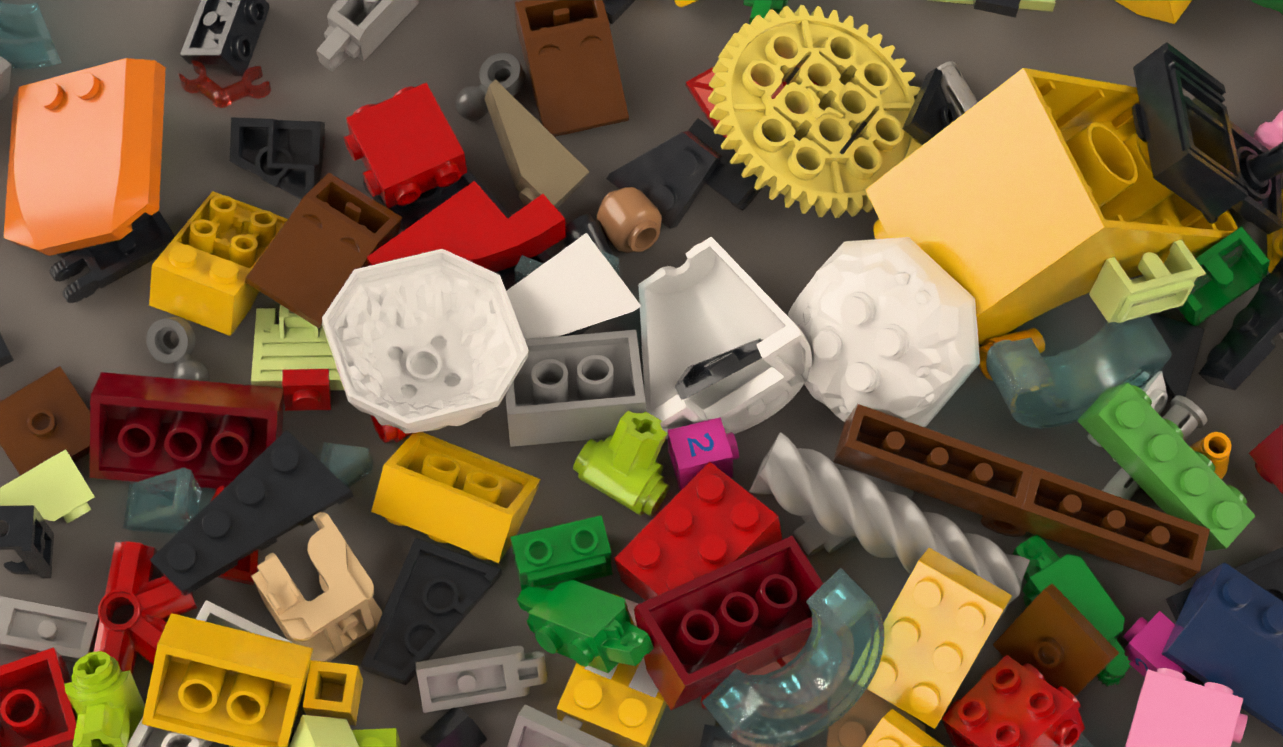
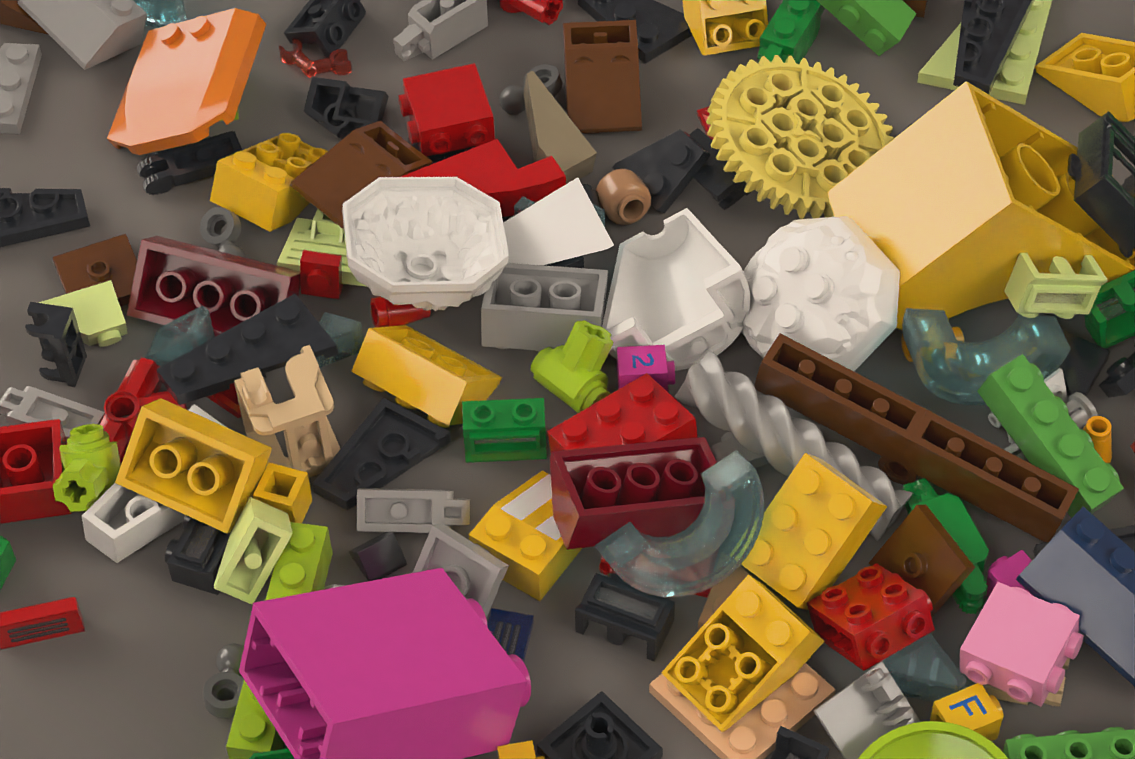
camera: 15 degrees right, 15 degrees down
(584, 625) = (508, 474): green hinge -> none
(716, 368) = (670, 308): black tile -> none

